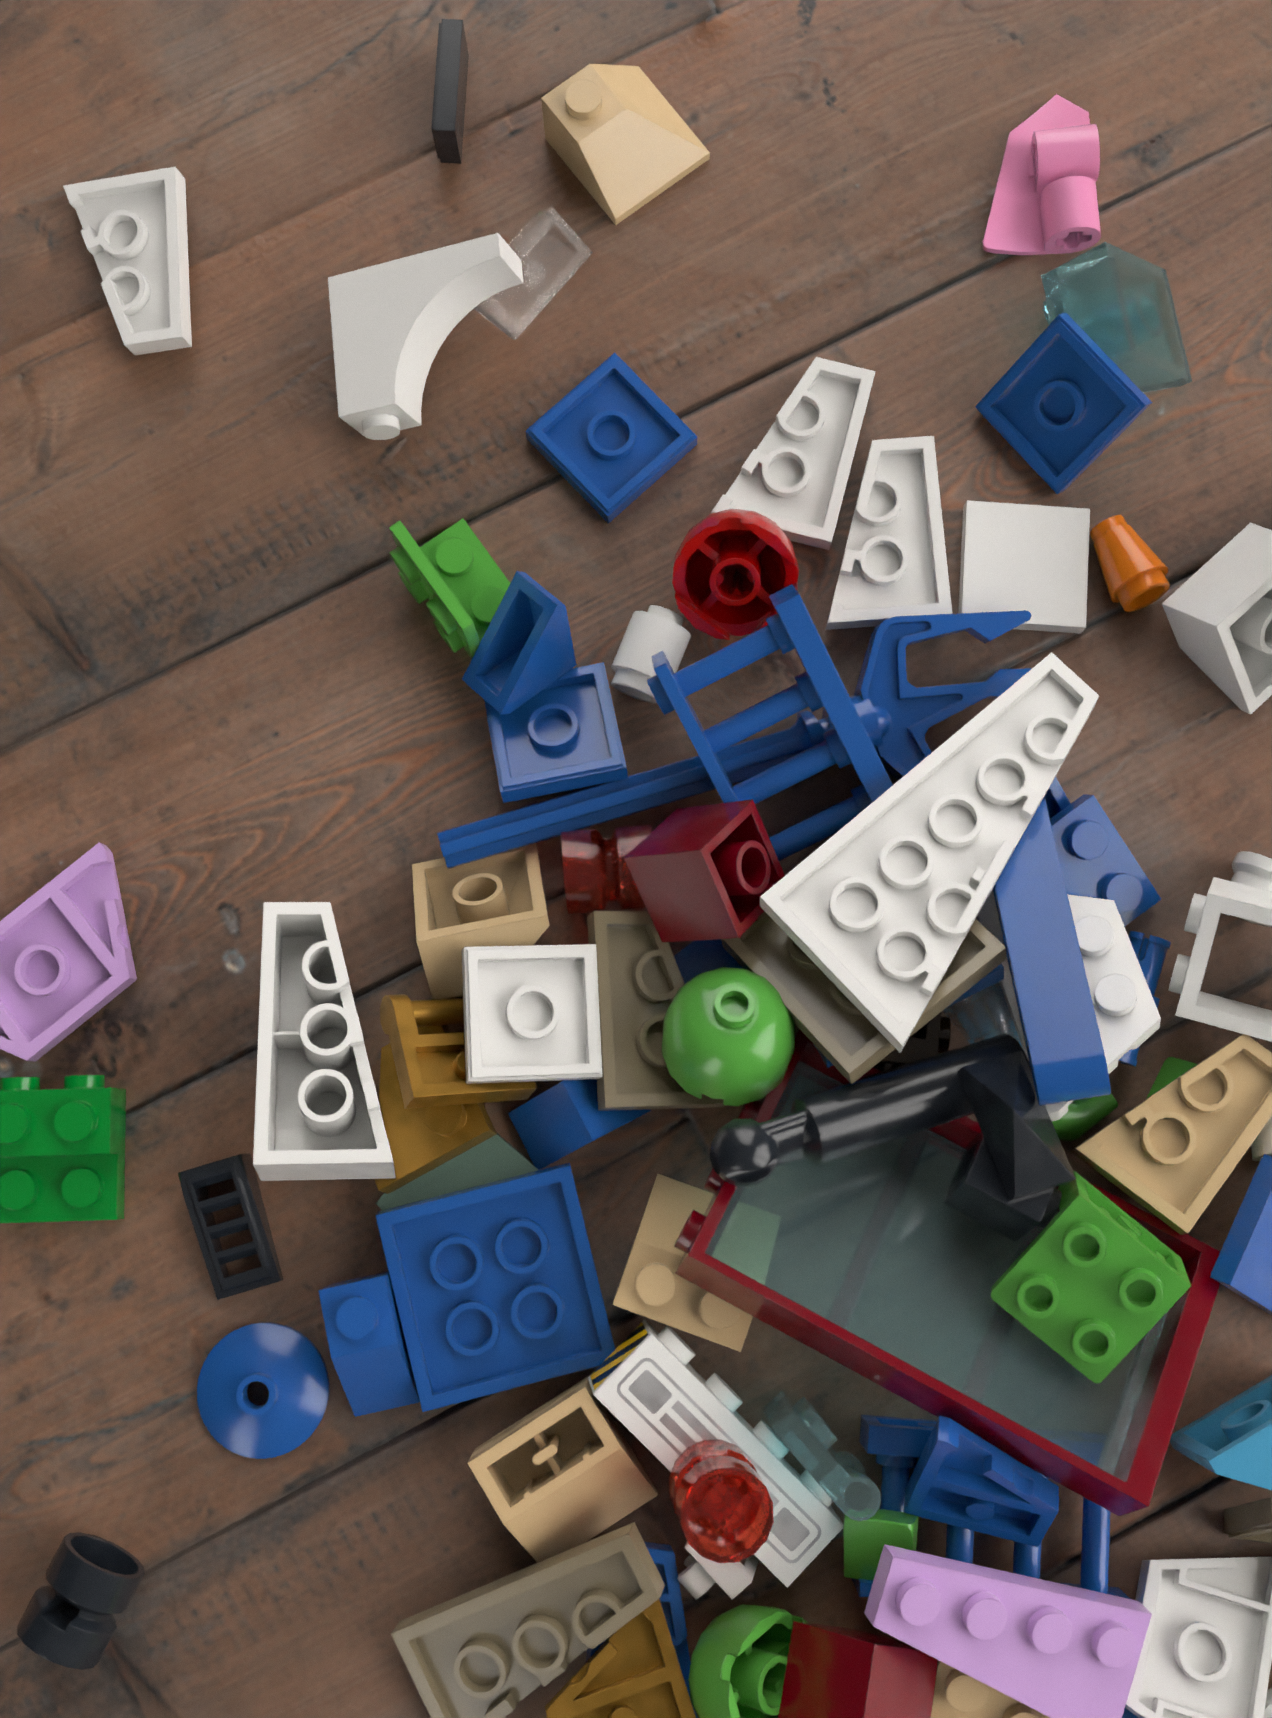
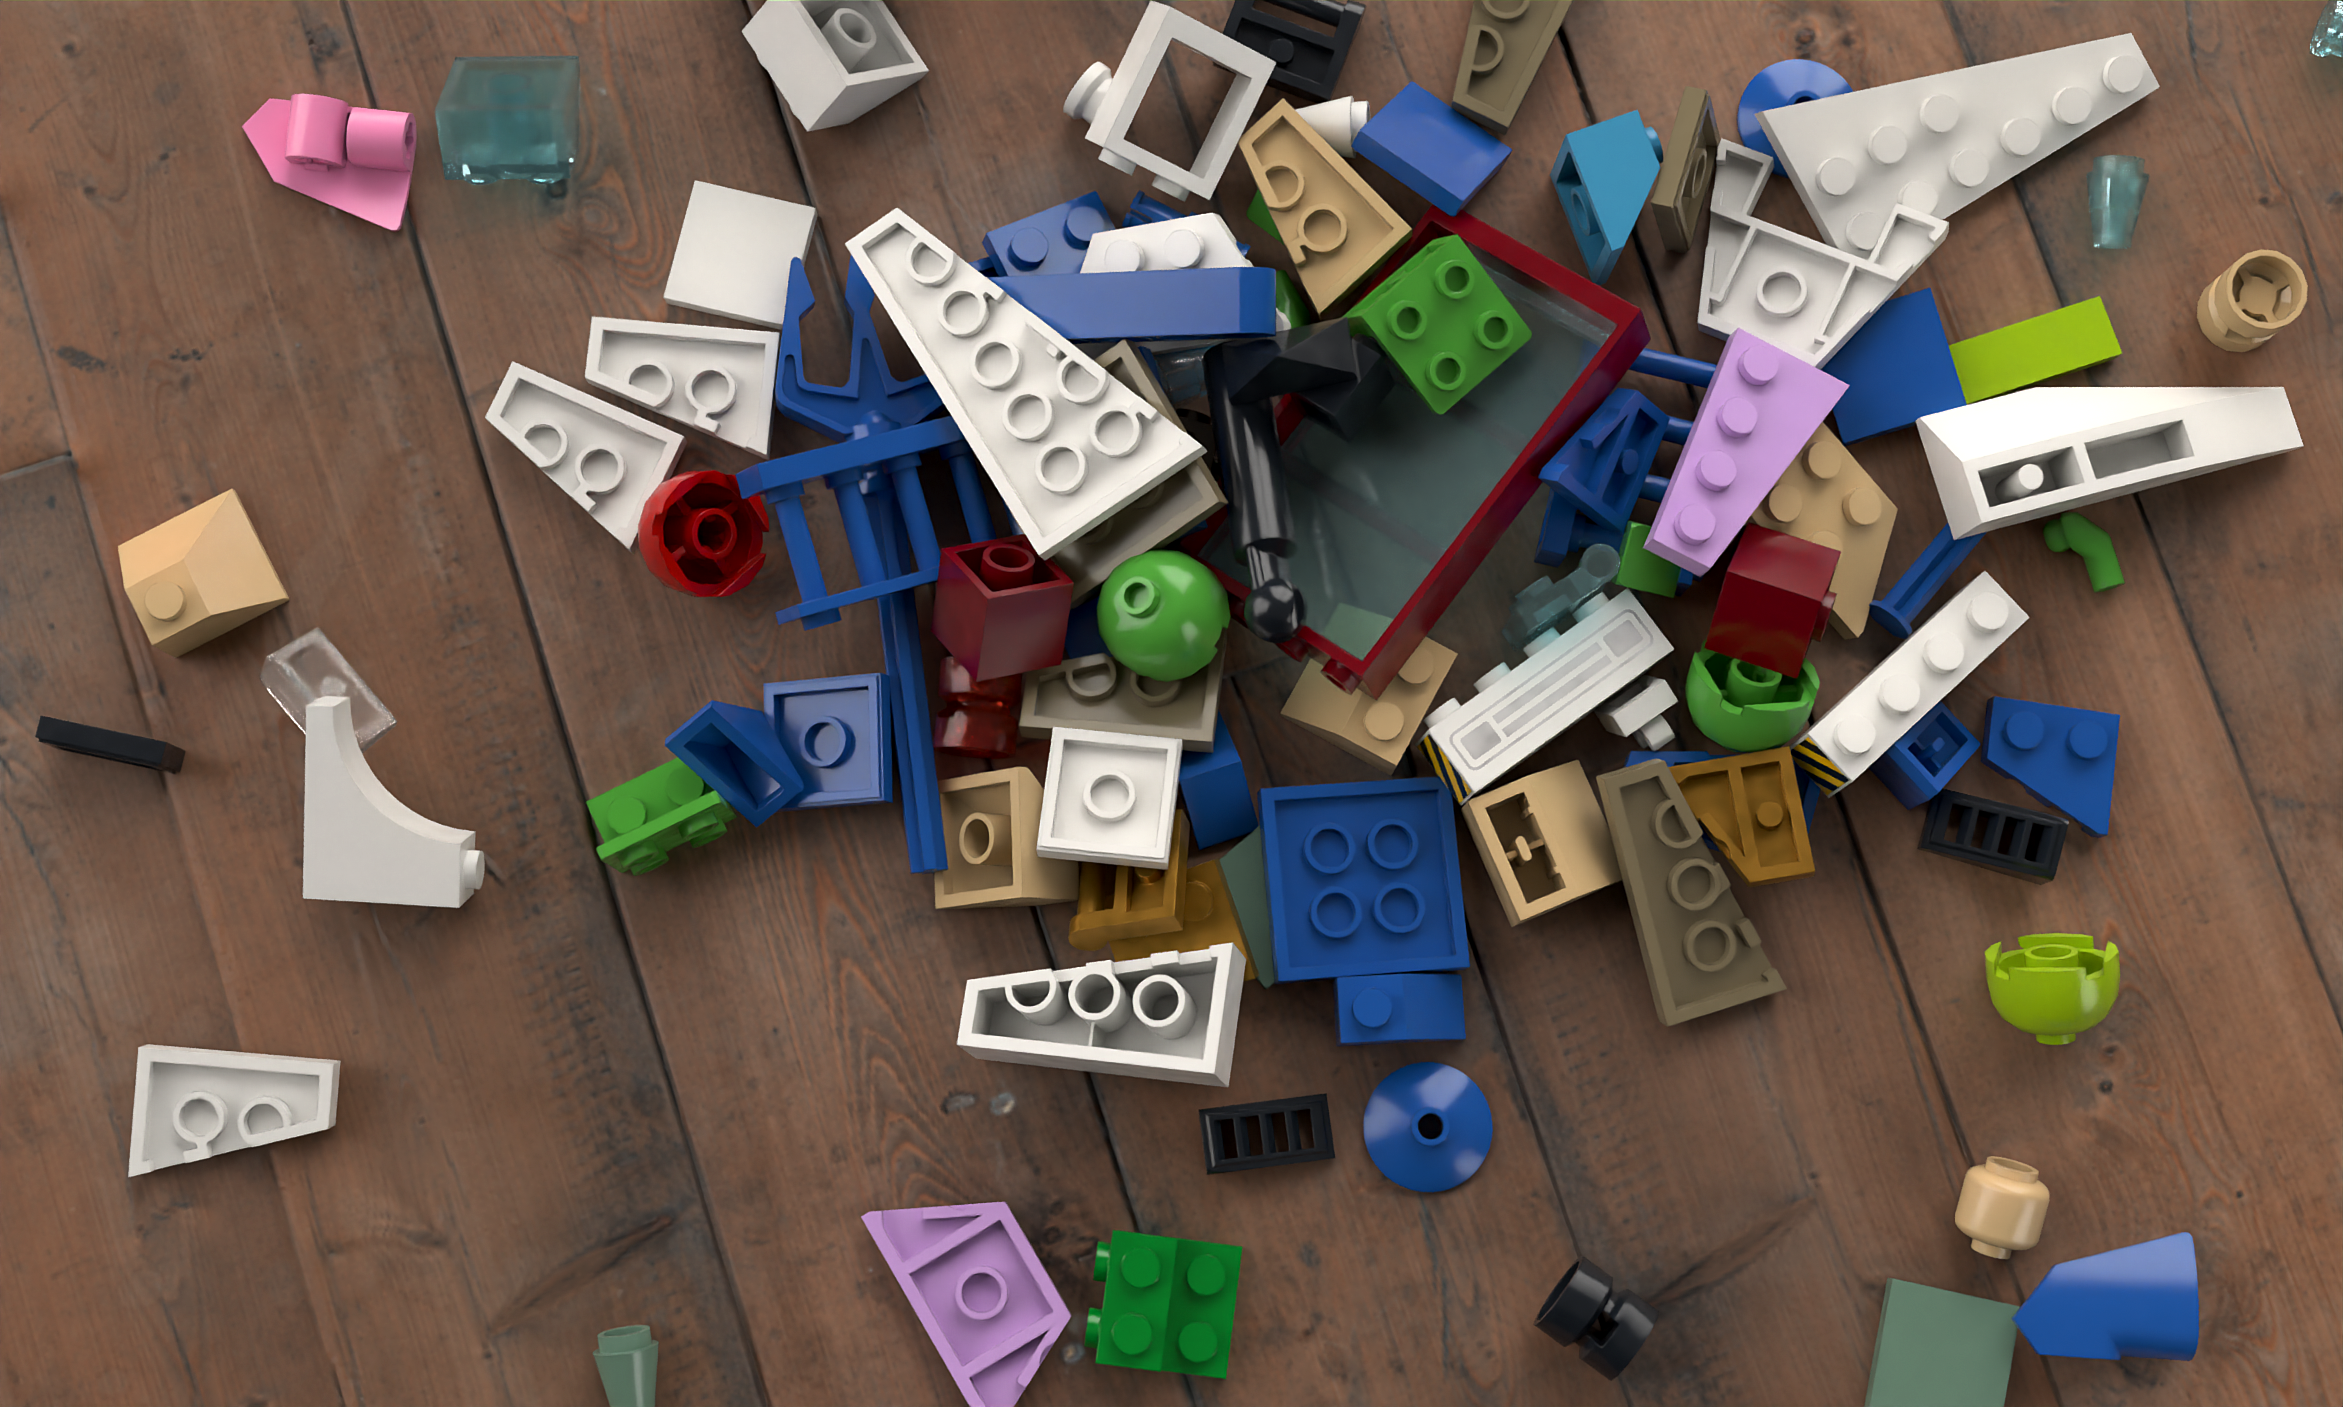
camera: 85 degrees left, 0 degrees up
(611, 437) = (525, 640): blue tile -> none
(644, 637) = (754, 635): white brick -> none
(720, 1501) = (1584, 687): clear red wheel -> none
(1062, 403) = (586, 185): blue tile -> none
(1128, 564) = (759, 155): orange cone -> none

